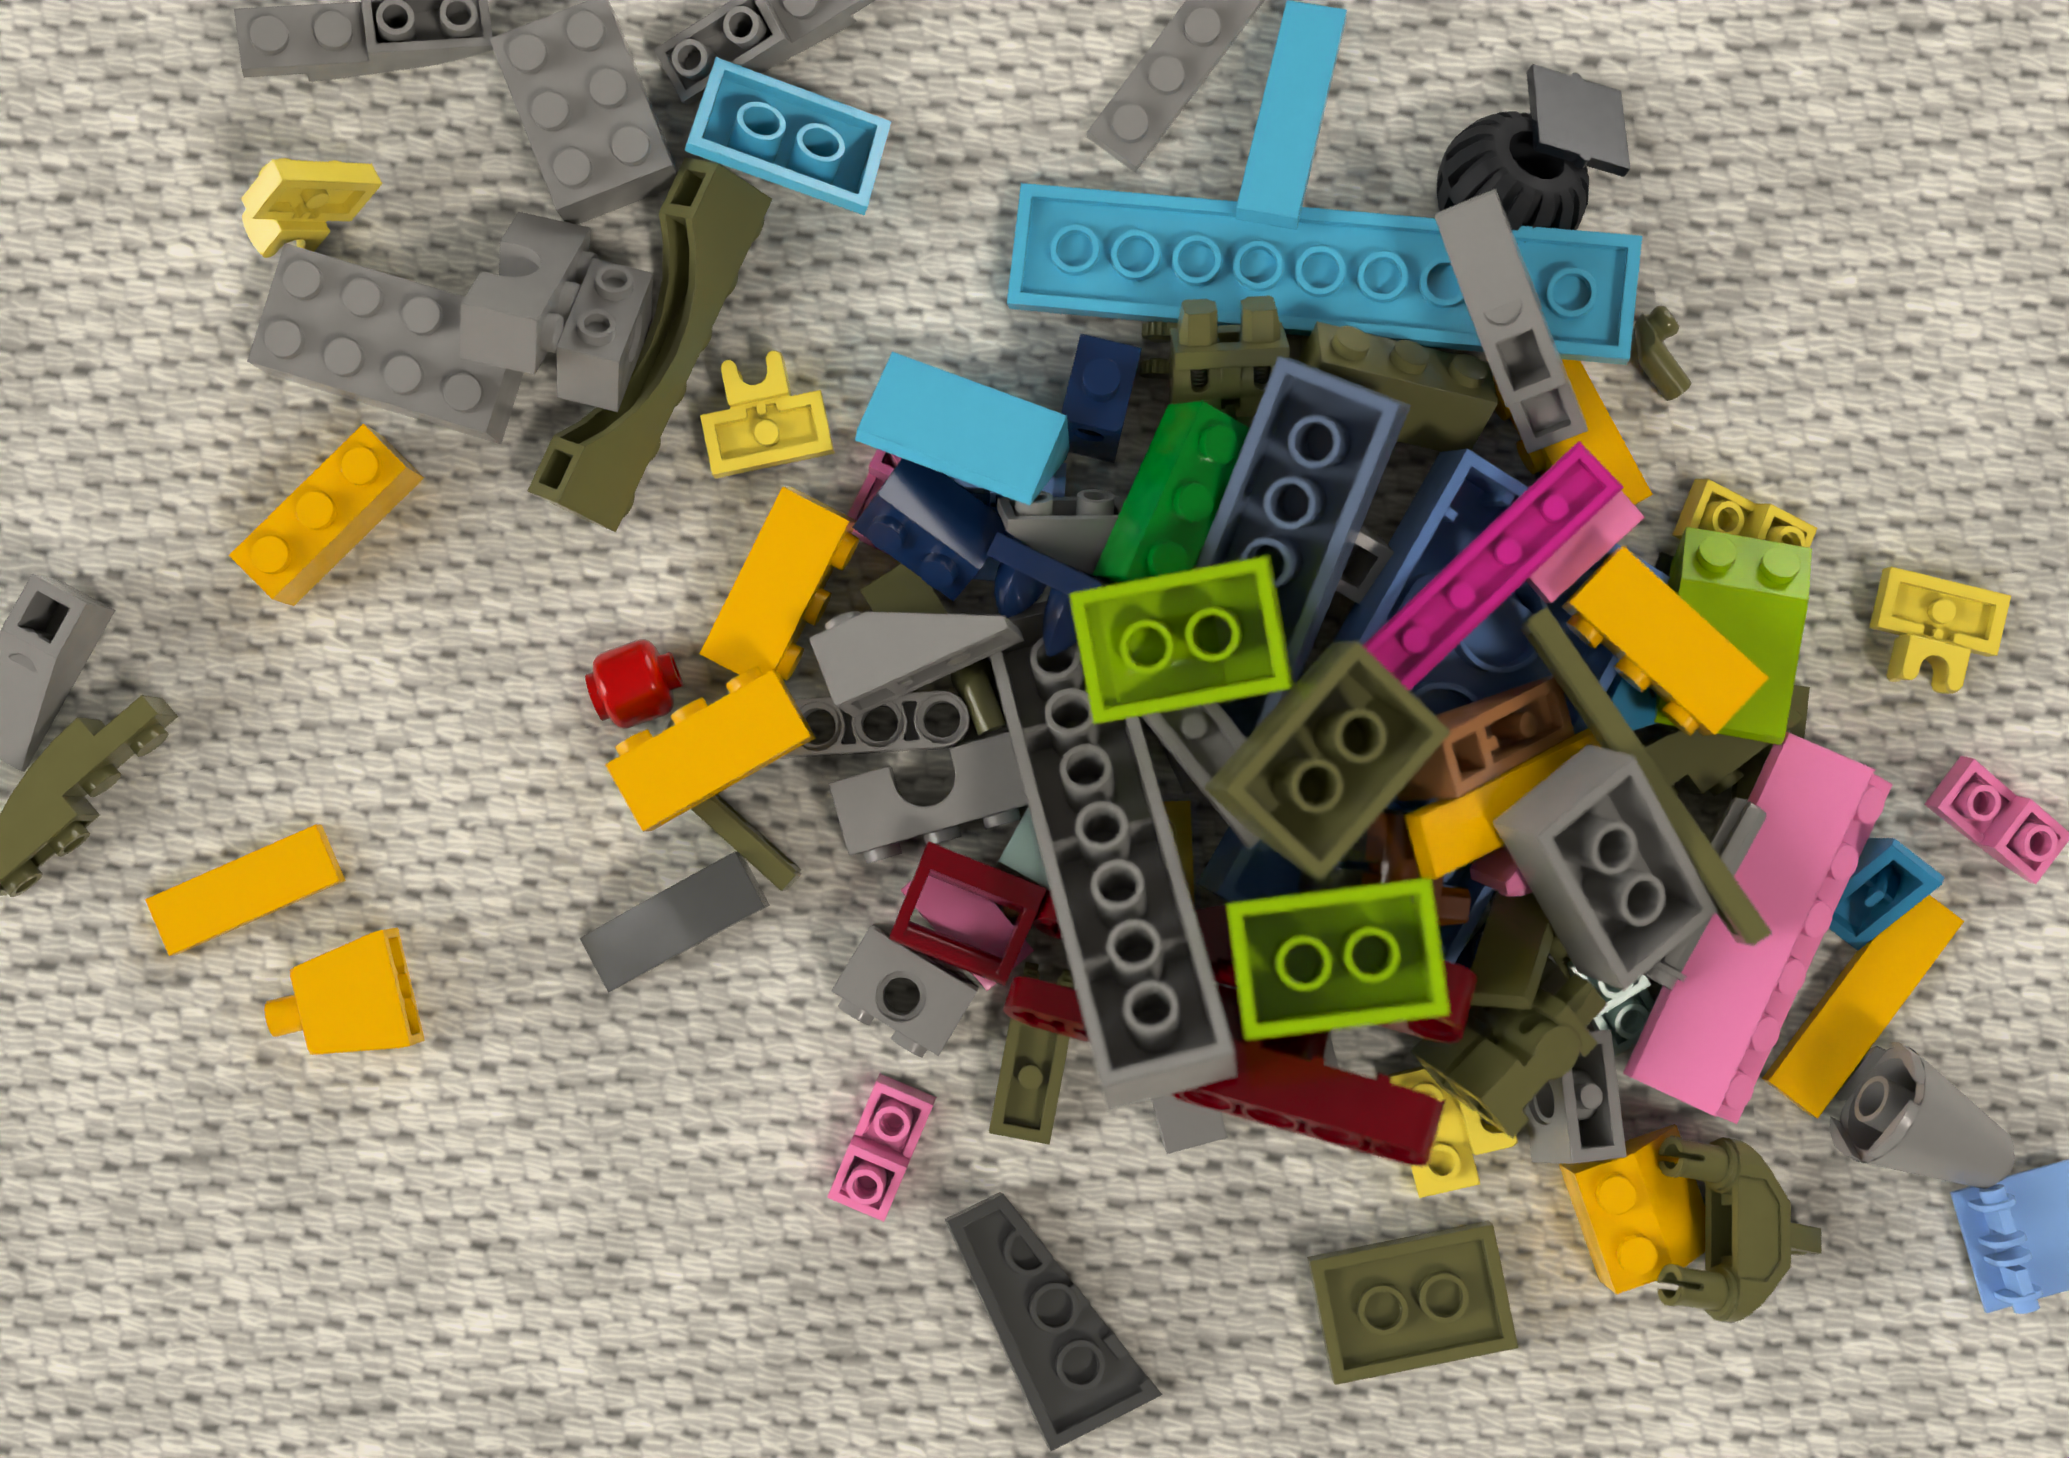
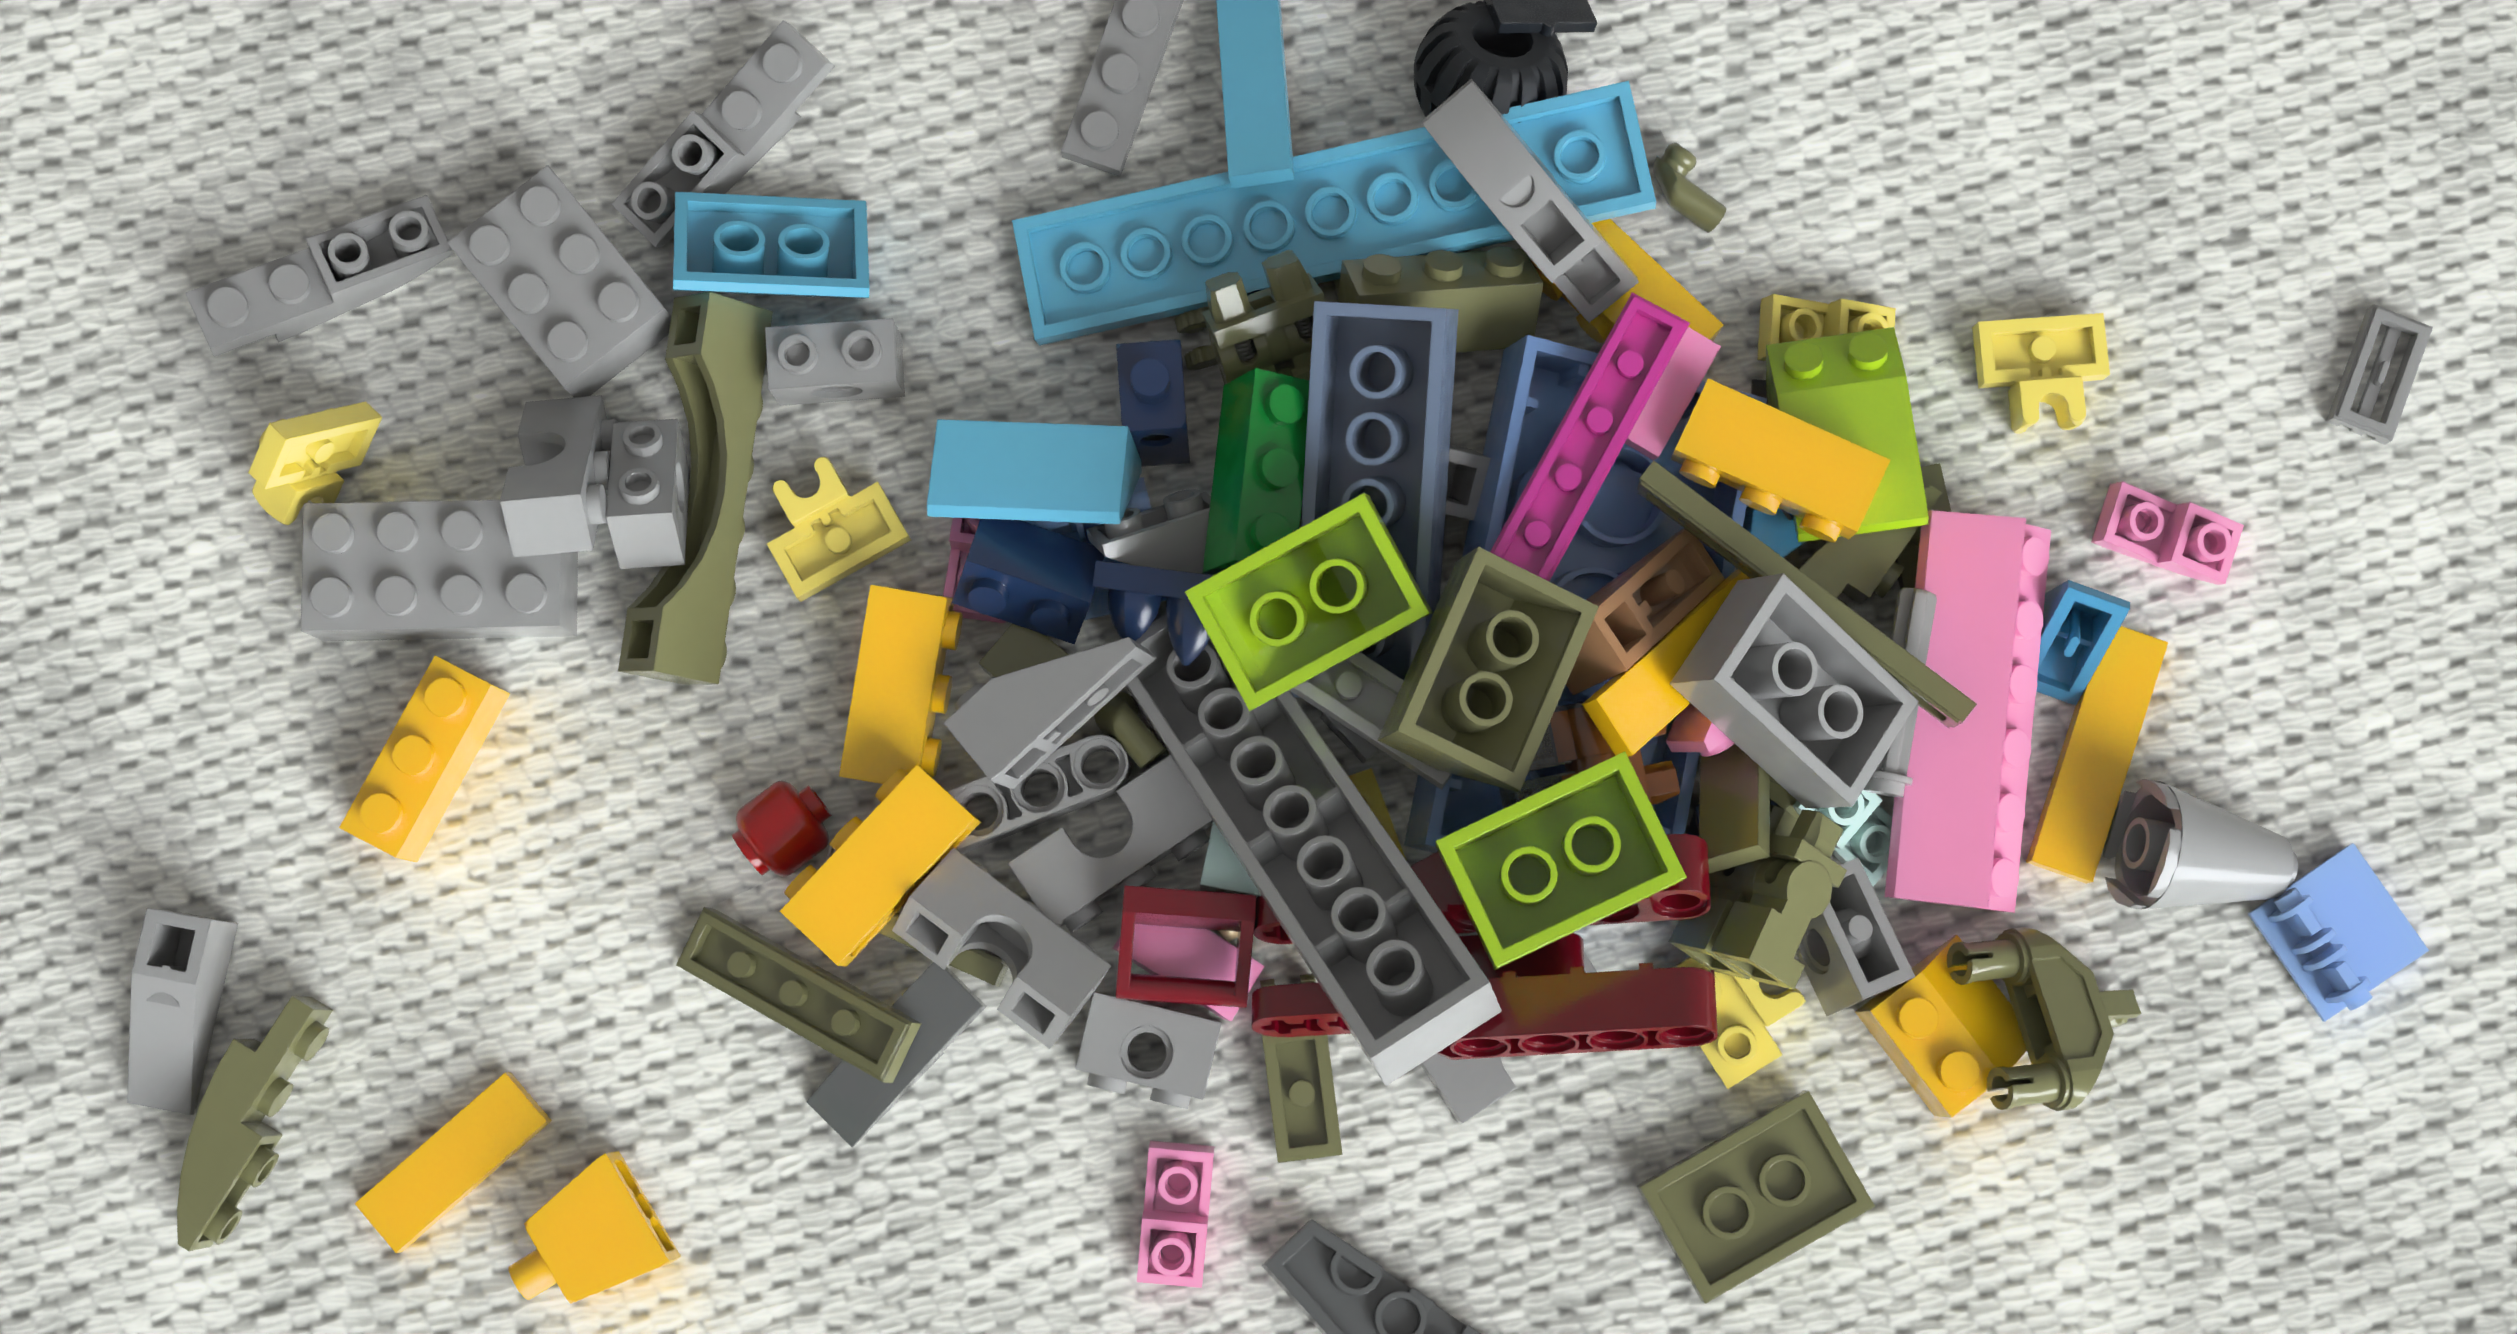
camera: 15 degrees left, 5 degrees down
(601, 841) = (799, 995): none -> olive tile
(780, 815) = (969, 909): none -> light grey arch
(815, 264) = (835, 362): none -> light grey brick

